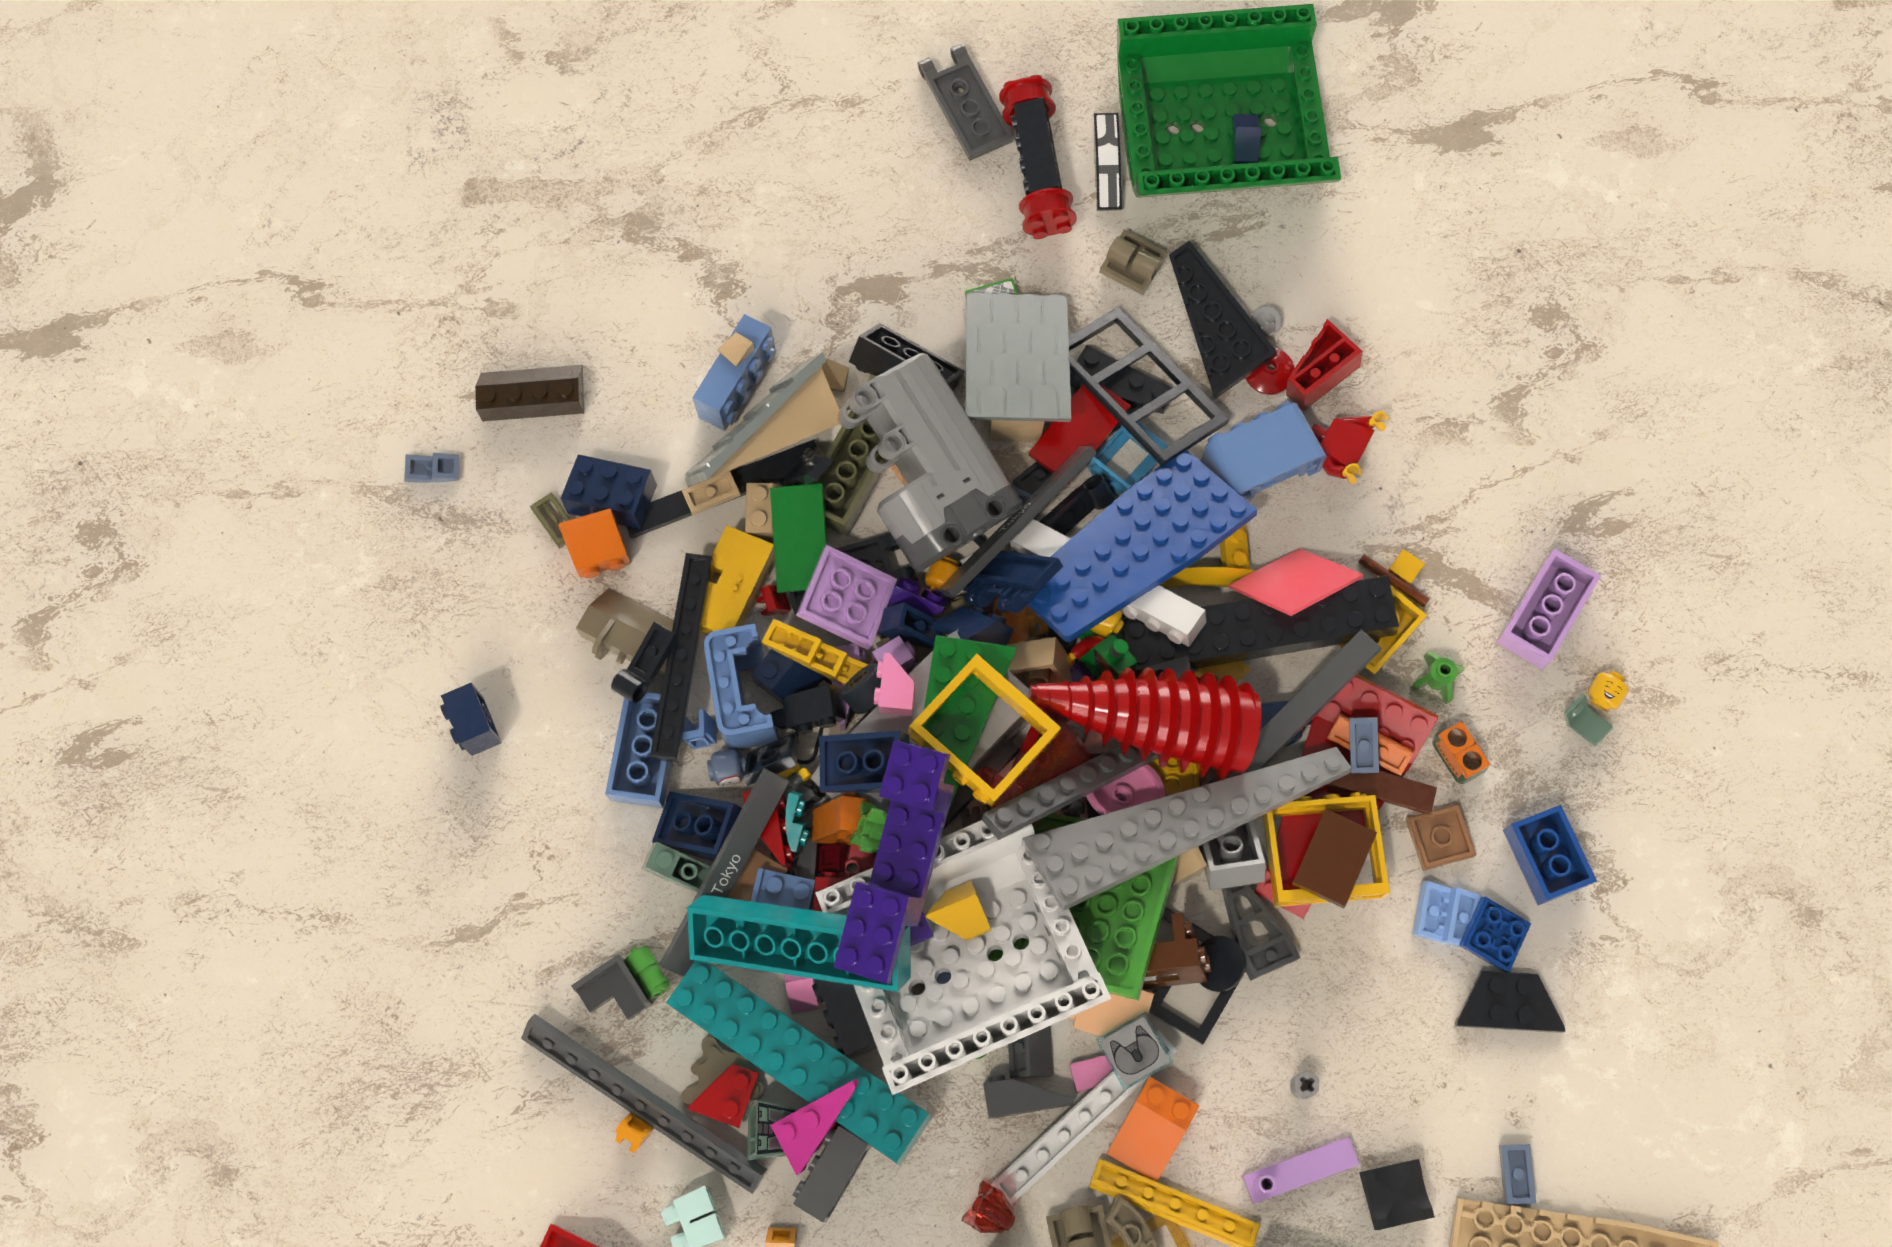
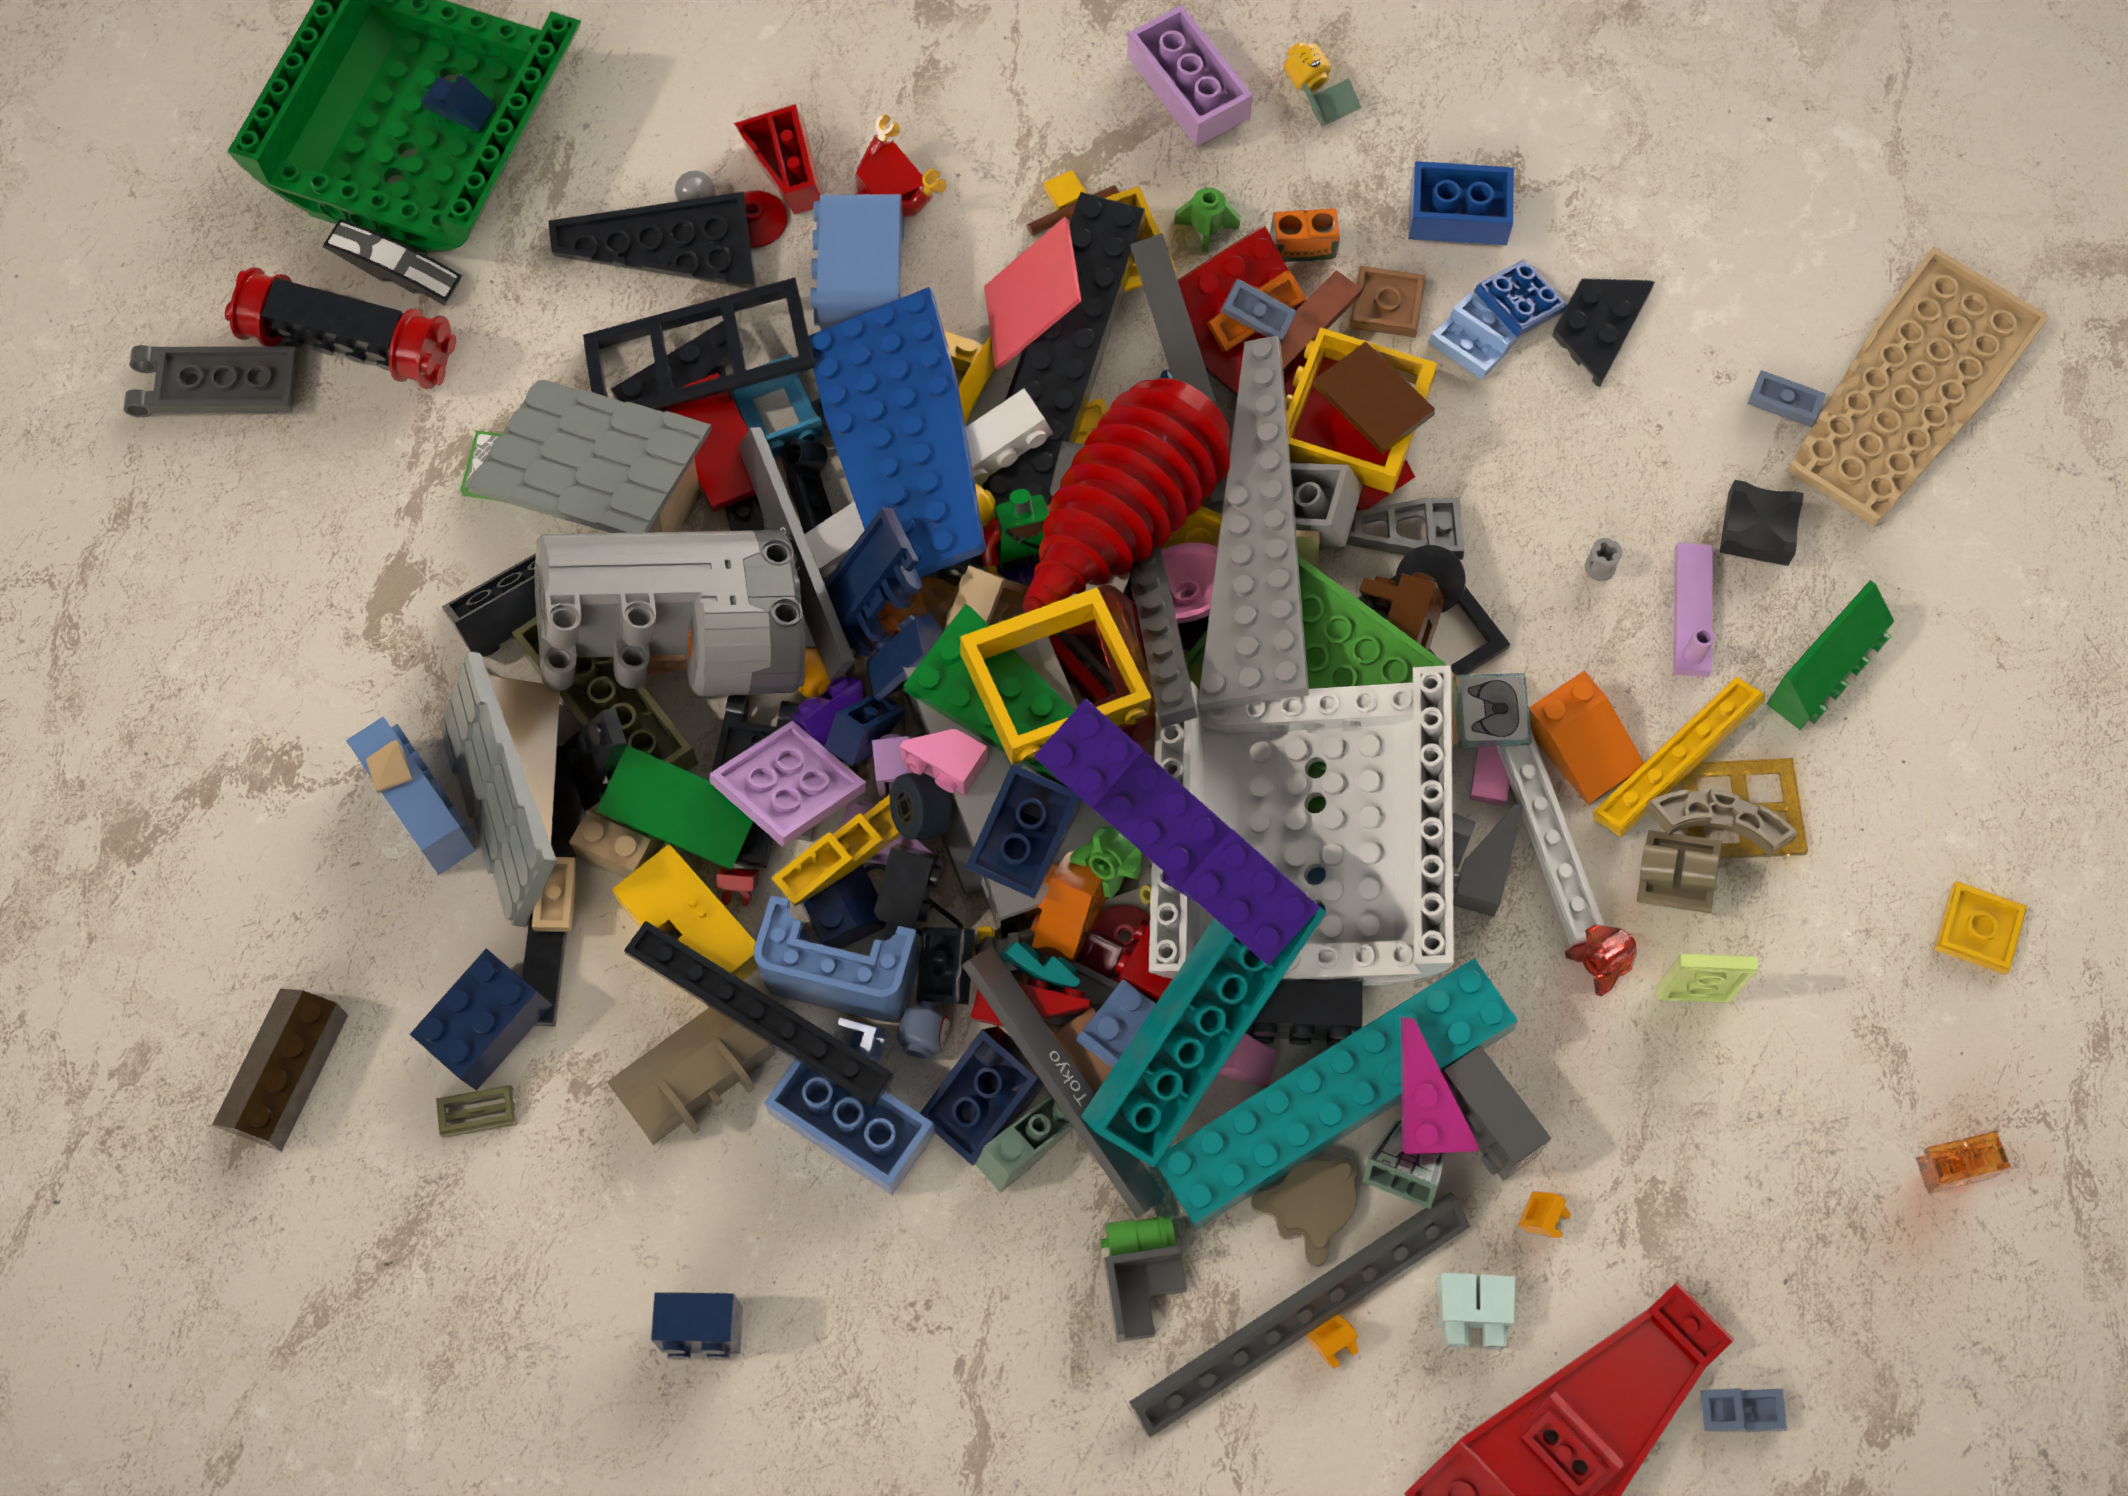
camera: 65 degrees left, 5 degrees down
(431, 469) = (311, 1245): sand blue slope -> none
(595, 543) = (547, 1061): orange slope -> none
(645, 664) = (746, 1057): black plate -> none
(727, 1096) = (1340, 1202): red wing -> none
(960, 912) = (1252, 810): yellow slope -> none
(1133, 261) = (537, 292): dark tan plate -> none

